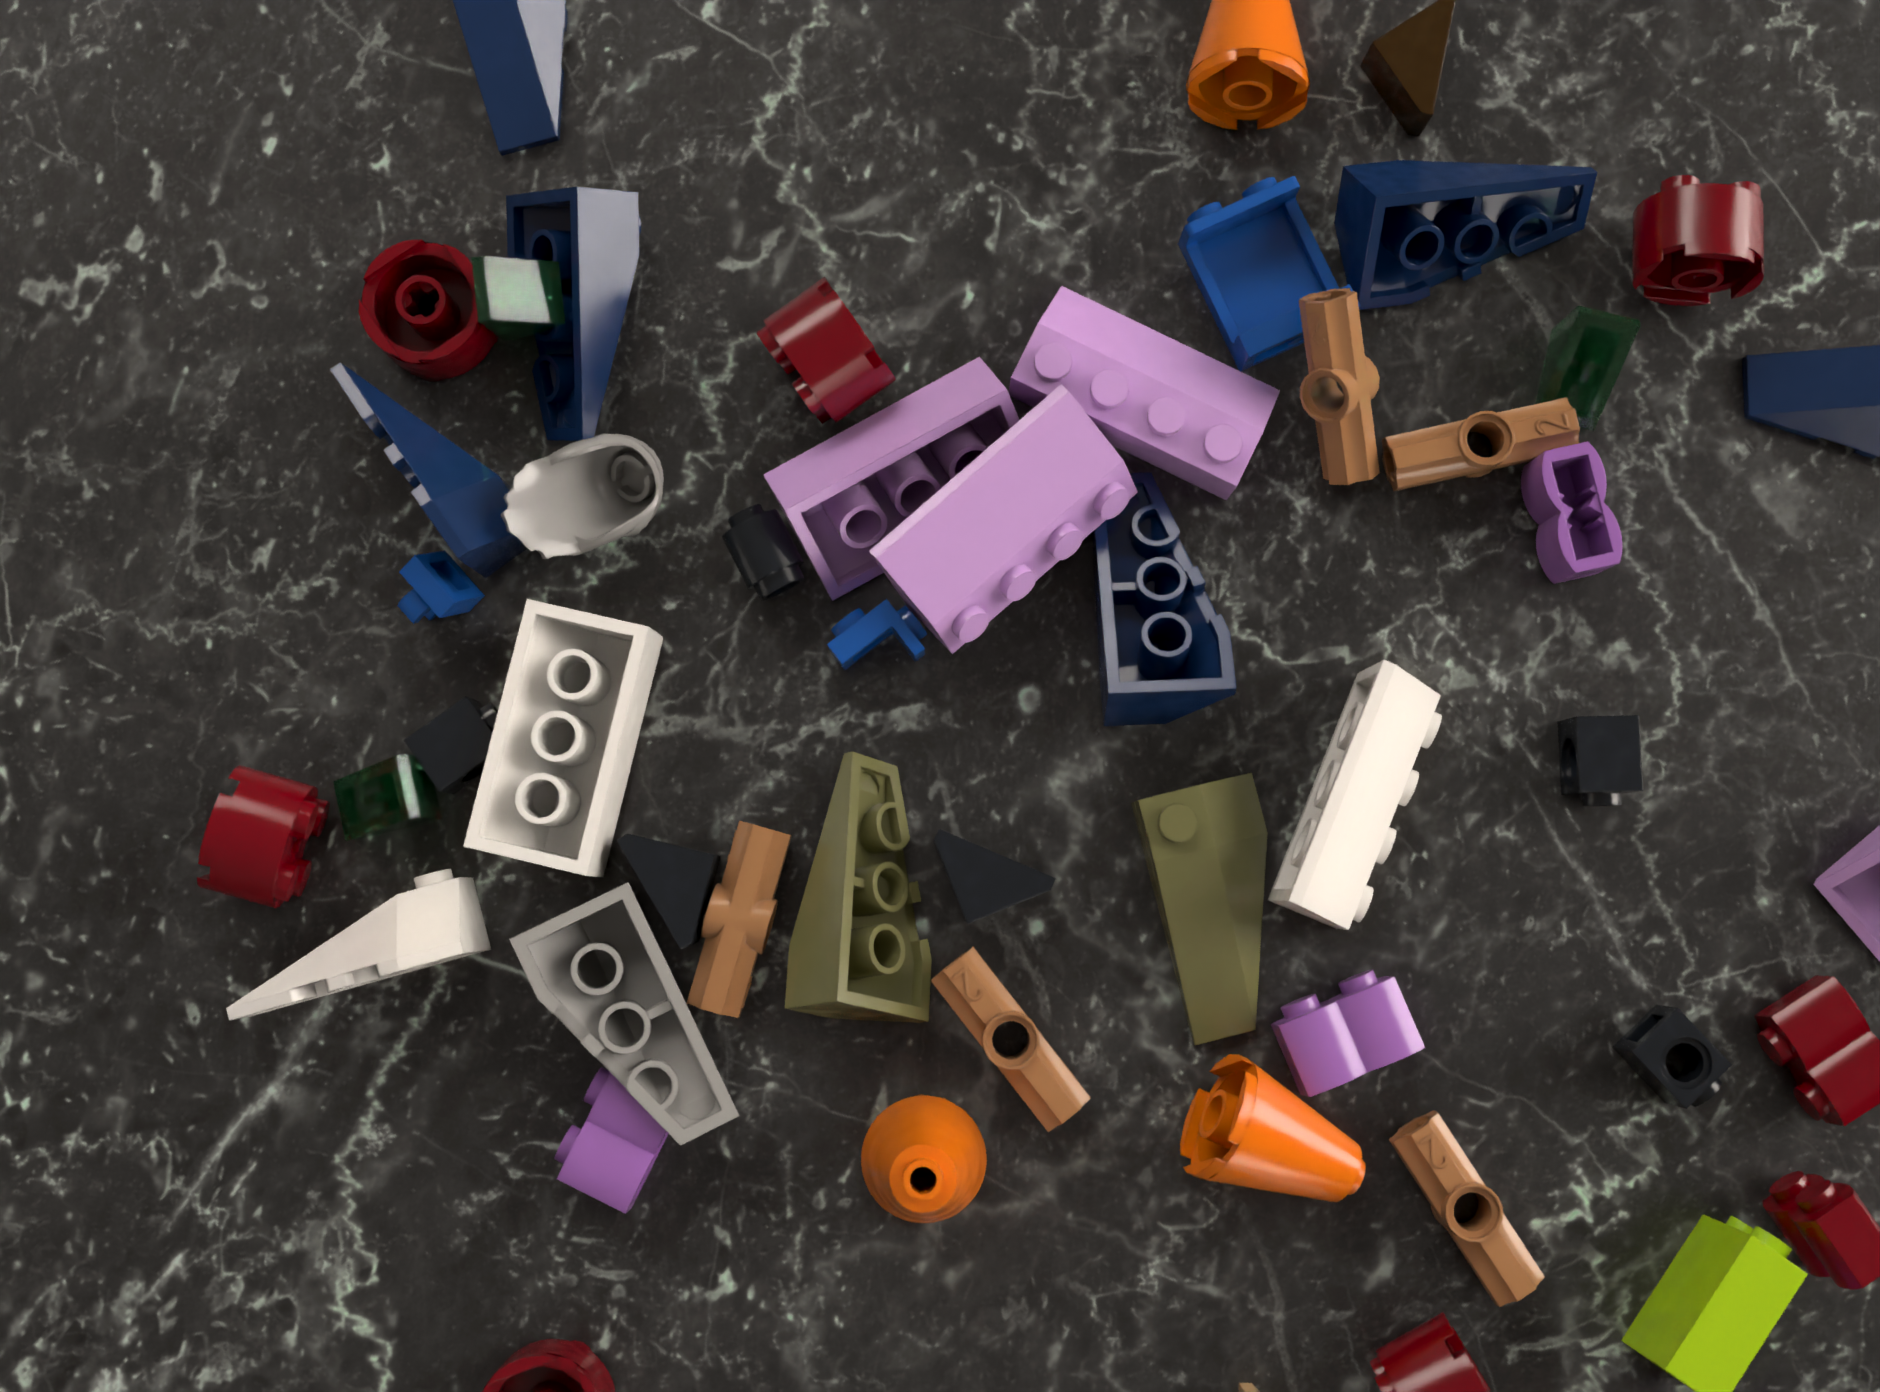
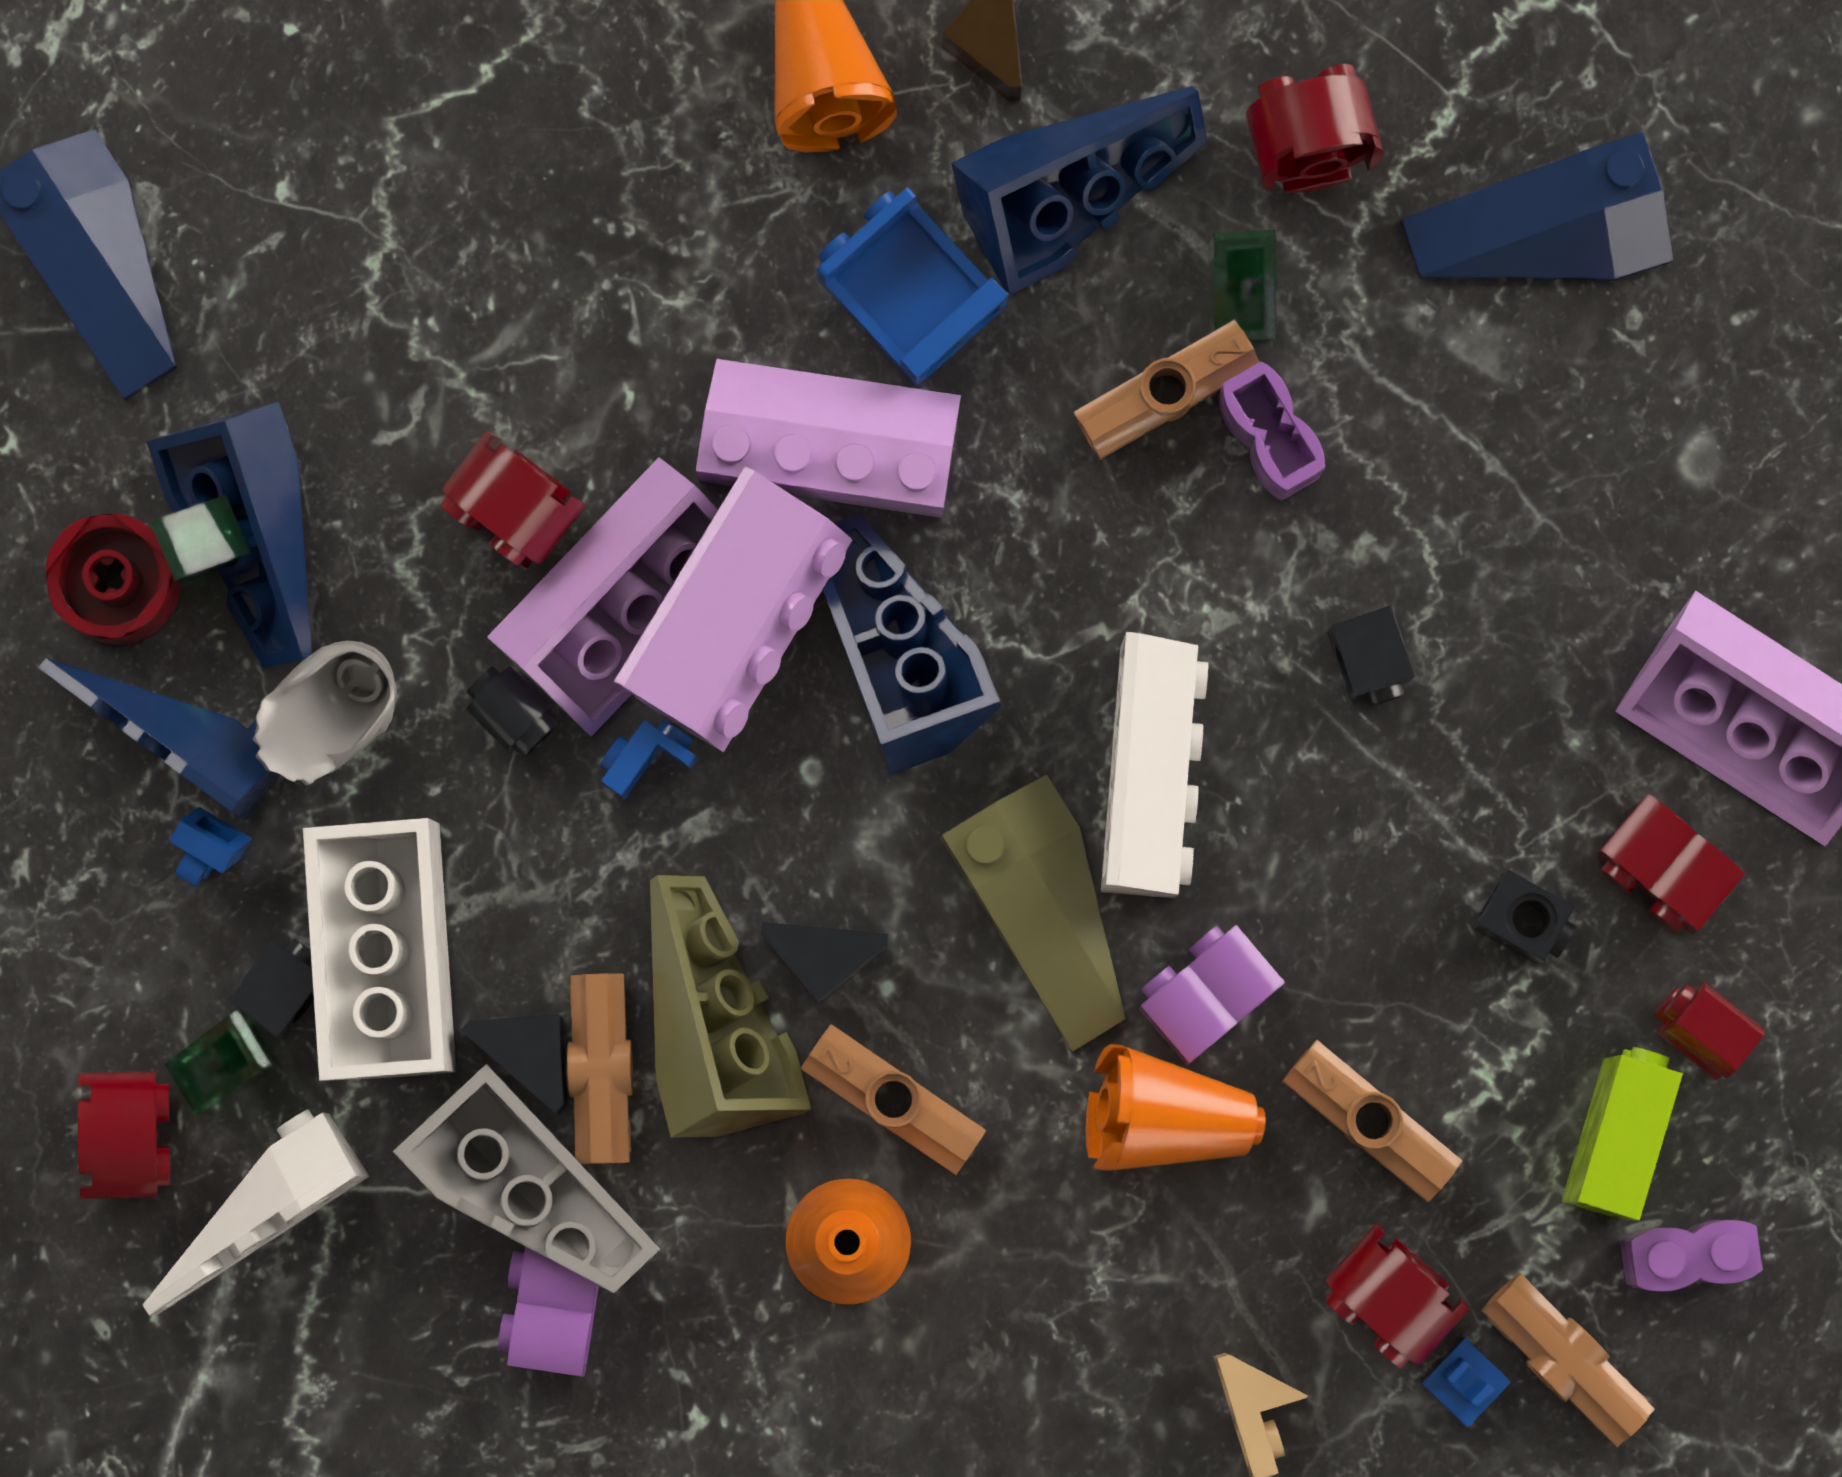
camera: 20 degrees left, 0 degrees up
(1337, 354) = (1012, 380): medium nougat piece -> none

